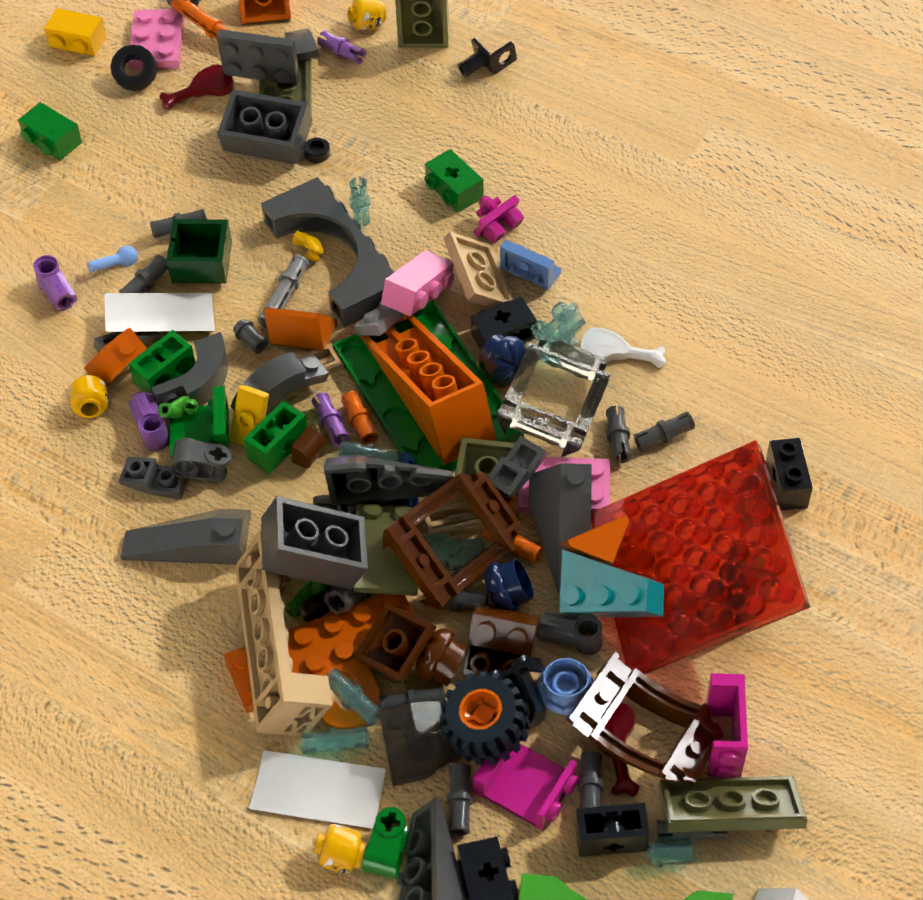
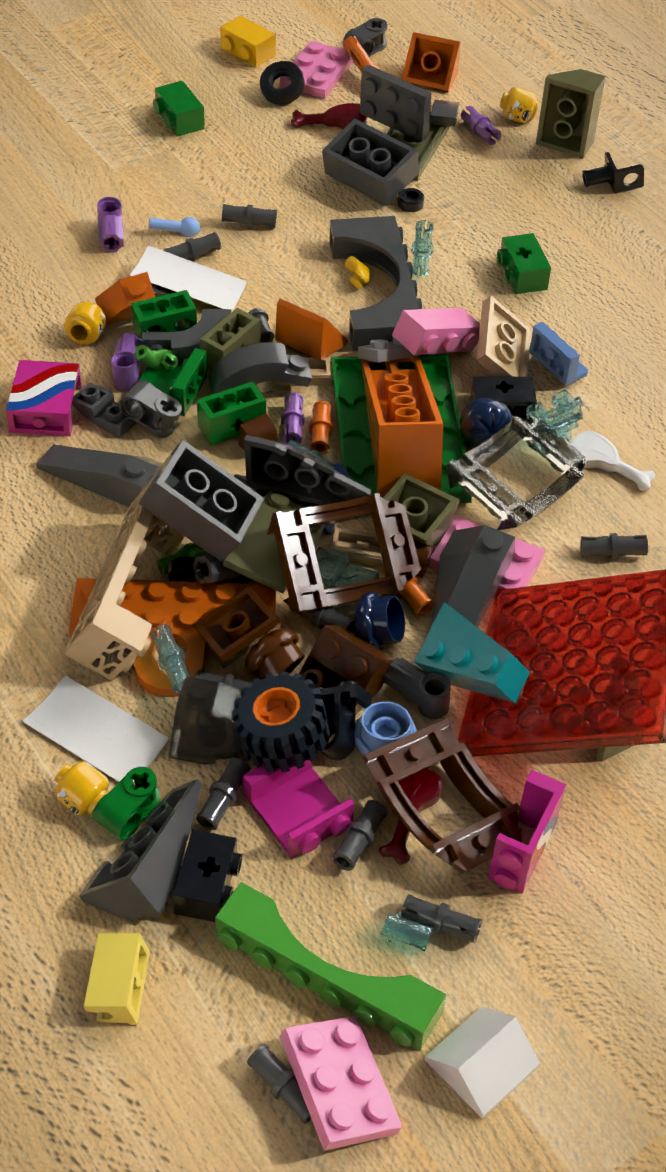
camera: 20 degrees right, 5 degrees down
(93, 488) = (43, 397): none -> panel
(199, 251) = (252, 240): dark green piece -> none
(236, 361) = (230, 334): none -> olive brick
(248, 413) = (219, 377): yellow plate -> none
(288, 282) = (322, 293): light grey pin -> none
(335, 740) = (135, 692): clear light blue pin -> none
(489, 224) = (549, 302): dark pink hips -> none
(517, 467) = (439, 518): dark grey slope -> none
(600, 542) = (484, 605): orange slope -> none
(612, 829) = (355, 881): black brick -> none
(618, 434) = (565, 531): dark grey pin -> none
(732, 804) = (495, 910): olive tile -> none

